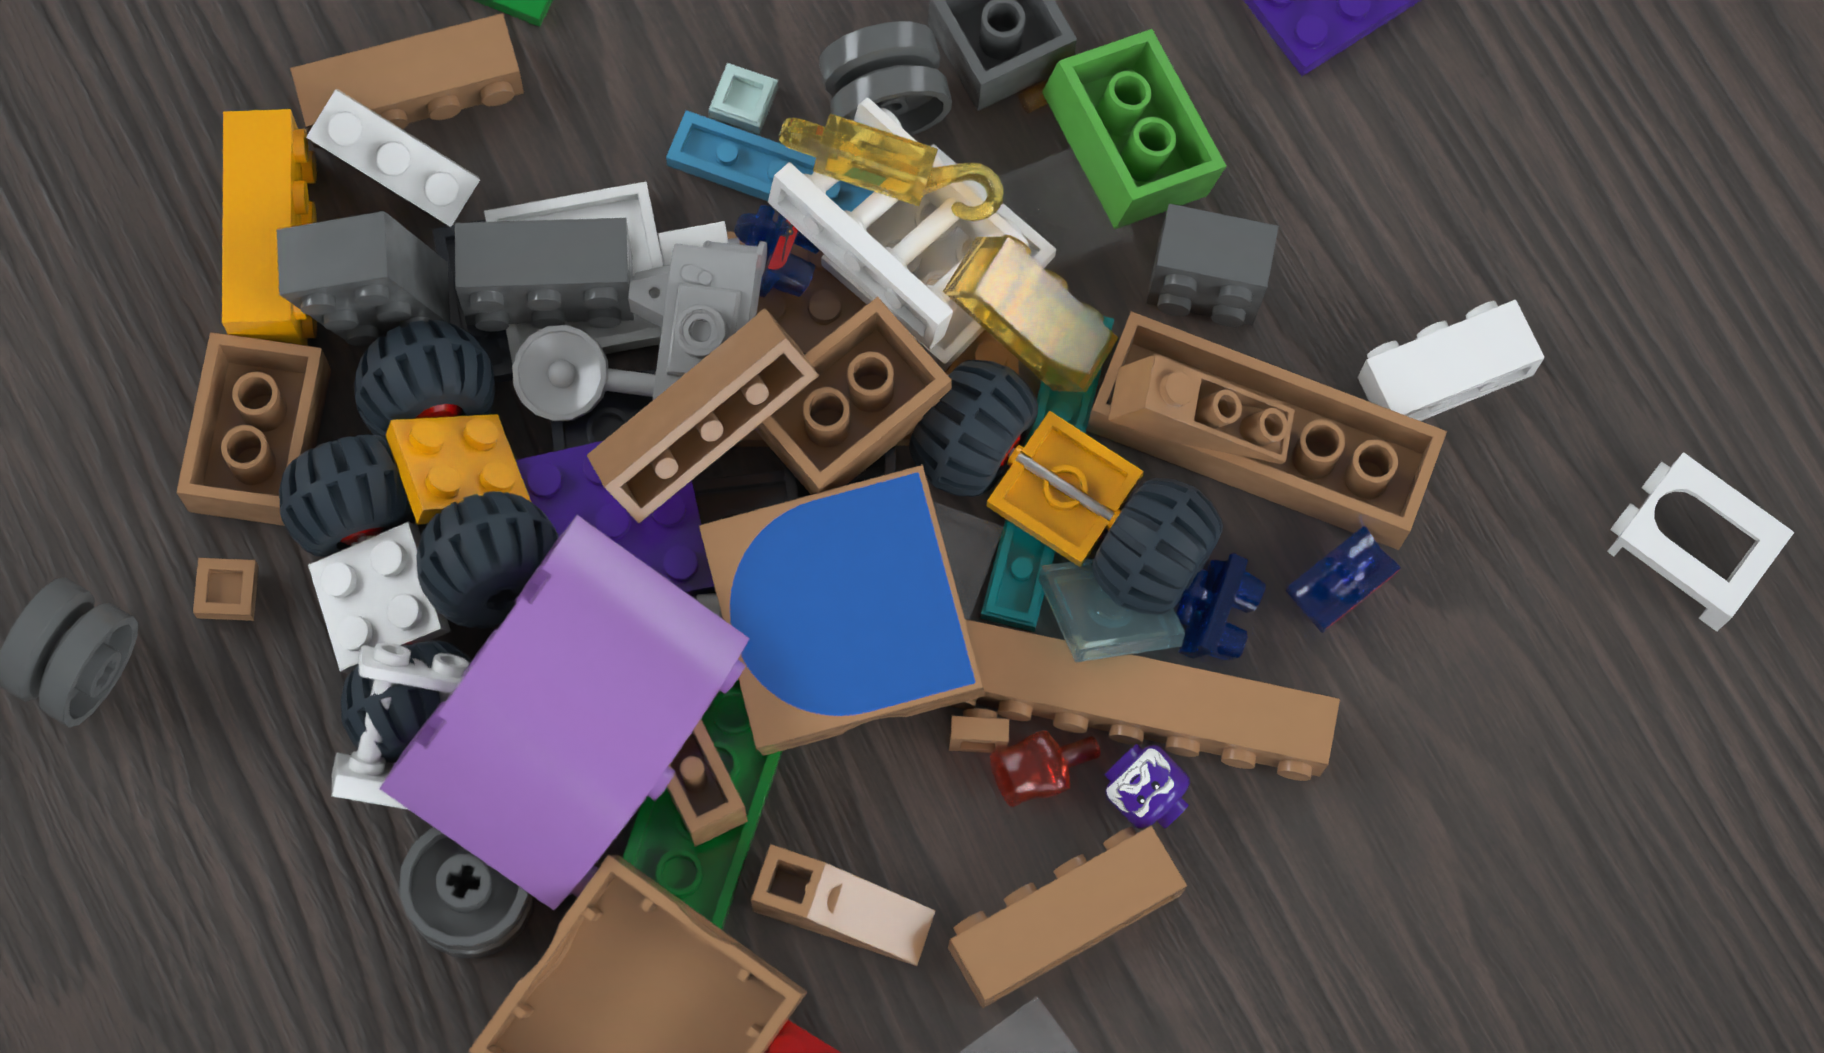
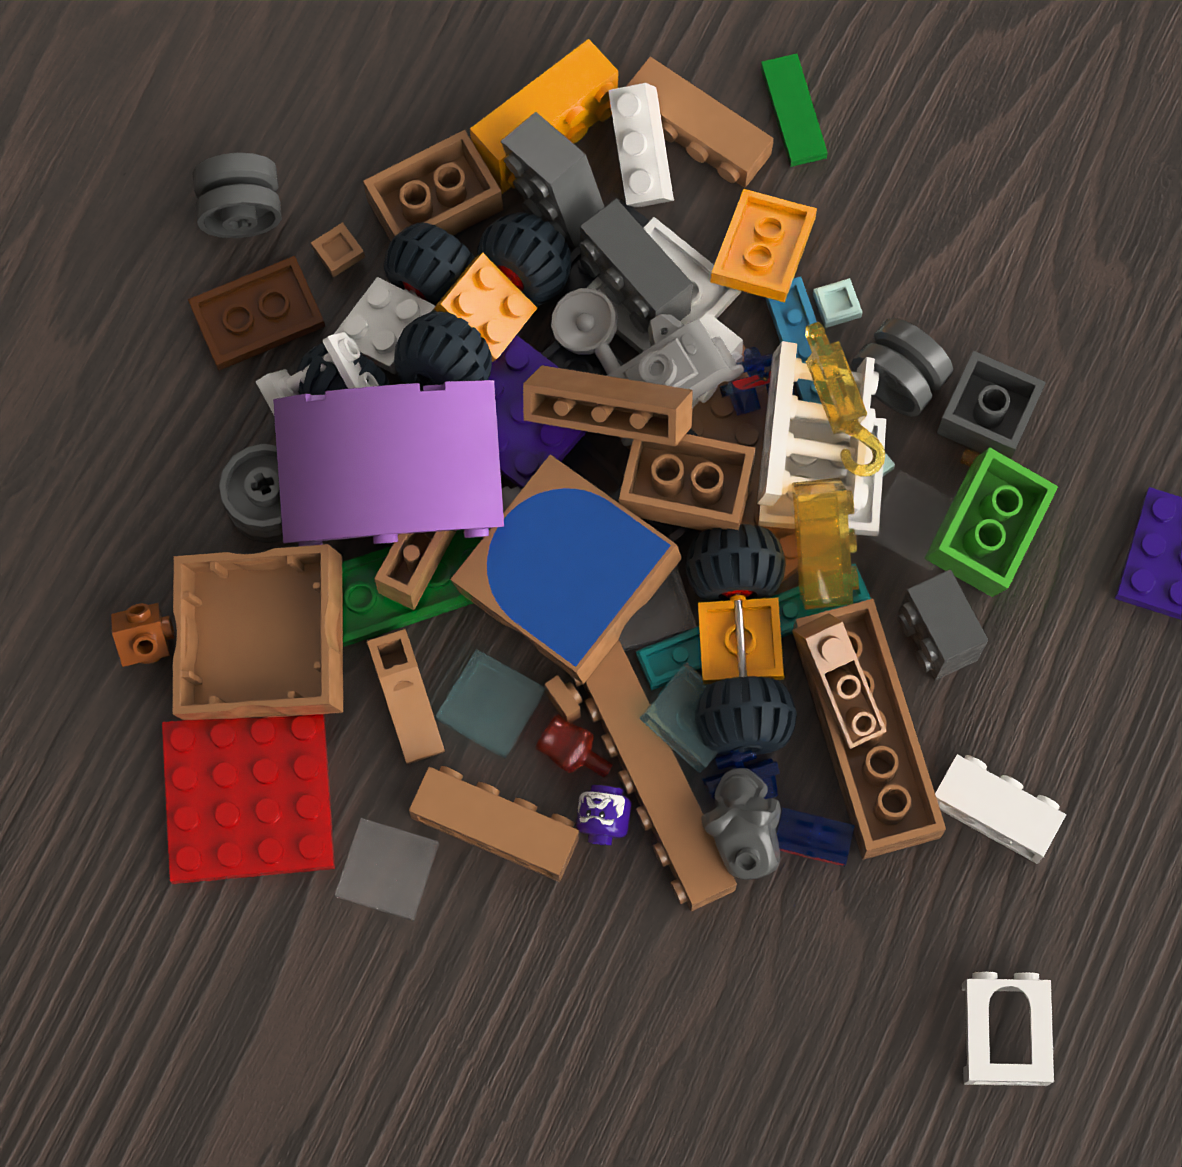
camera: 60 degrees right, 0 degrees up
(226, 740) = (256, 313): none -> reddish brown plate
(619, 120) = (763, 245): none -> light orange plate
(917, 819) = (490, 703): none -> clear light blue tile
(1282, 638) = (744, 825): none -> dark grey head

